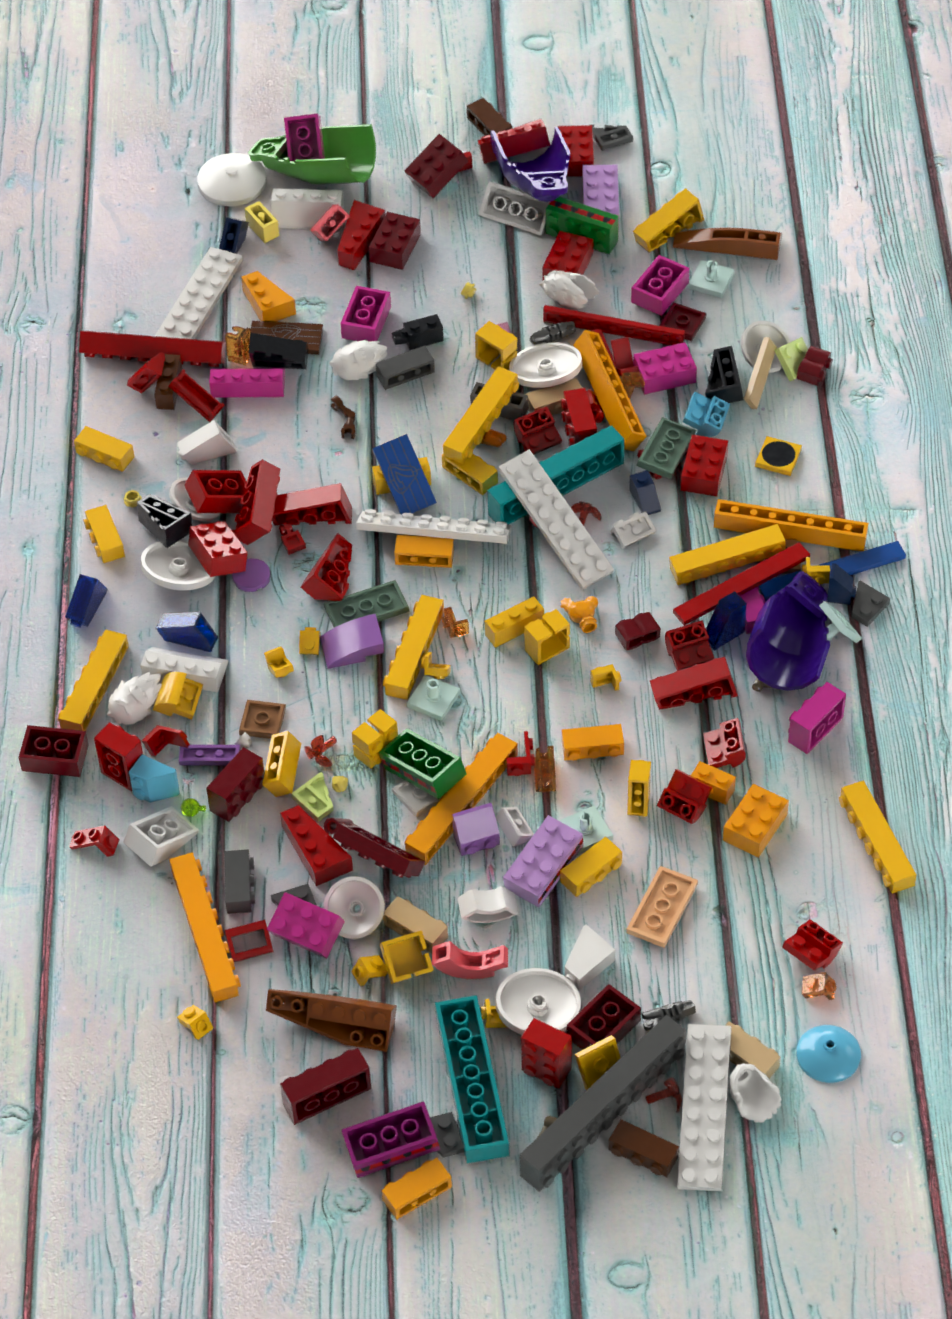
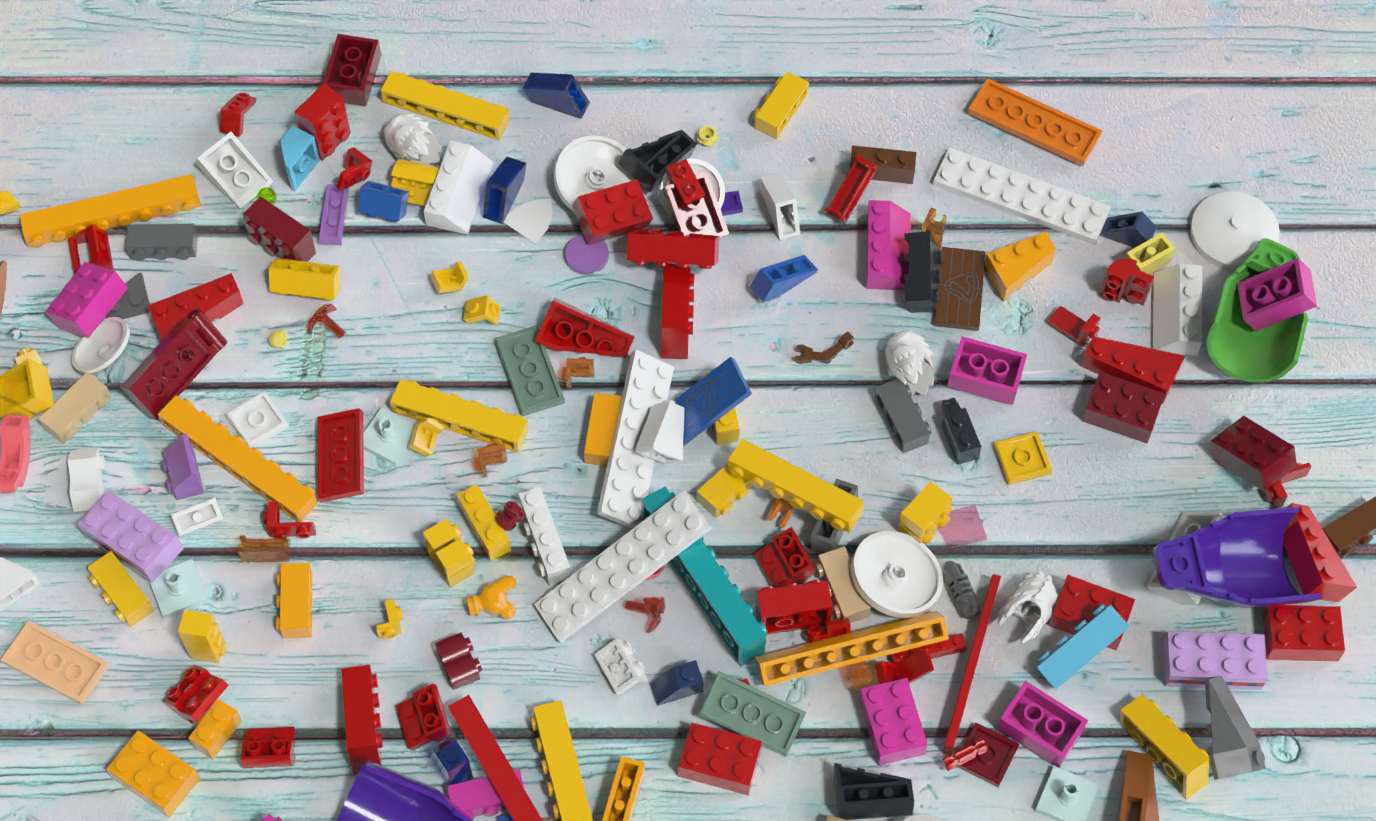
camera: 90 degrees right, 10 degrees up
(104, 534) = (654, 109): yellow brick -> none
(126, 291) = (1035, 122): none -> orange plate
(147, 347) = (935, 145): red brick -> none
(147, 374) = (890, 140): red tile -> none
(199, 484) = (685, 181): none -> red bracket
(200, 714) = (383, 201): none -> blue brick
(216, 615) = (531, 218): none -> white sticker
(244, 741) = (349, 246): white hinge -> none
(262, 719) = (380, 266): medium nougat tile -> none
(279, 443) = (781, 277): none -> blue slope
(287, 233) = (1126, 281): none -> red brick
(291, 539) = (631, 294): red plate -> none
(314, 797) = (262, 314): yellowish green wing -> none
(324, 267) = (1075, 326): none -> red bracket
(329, 222) = (1144, 329): coral brick -> none
(352, 642) = (473, 353): medium lavender slope -> none
(369, 575) = (578, 368): none -> clear orange bracket
(369, 742) = (325, 373): yellow piece -> none
(422, 763) = (275, 412): green brick -> none
(429, 504) = (663, 433): none -> white slope
(438, 301) = (1022, 458): none -> yellow tile
(457, 722) = (340, 455): none -> red plate
(468, 290) = (1039, 493): light yellow plate -> none
(513, 596) = (509, 516): none -> dark red wheel
(524, 581) = (545, 537): none -> white brick
(583, 221) = (1147, 631): green brick -> none
(601, 257) = (1083, 646): none -> medium azure brick
(611, 136) = (1340, 682): dark grey wing -> none
(664, 181) = (1233, 741): none -> wedge
(685, 325) = (964, 754): none -> axle
(706, 414) = (807, 766): medium azure brick -> none

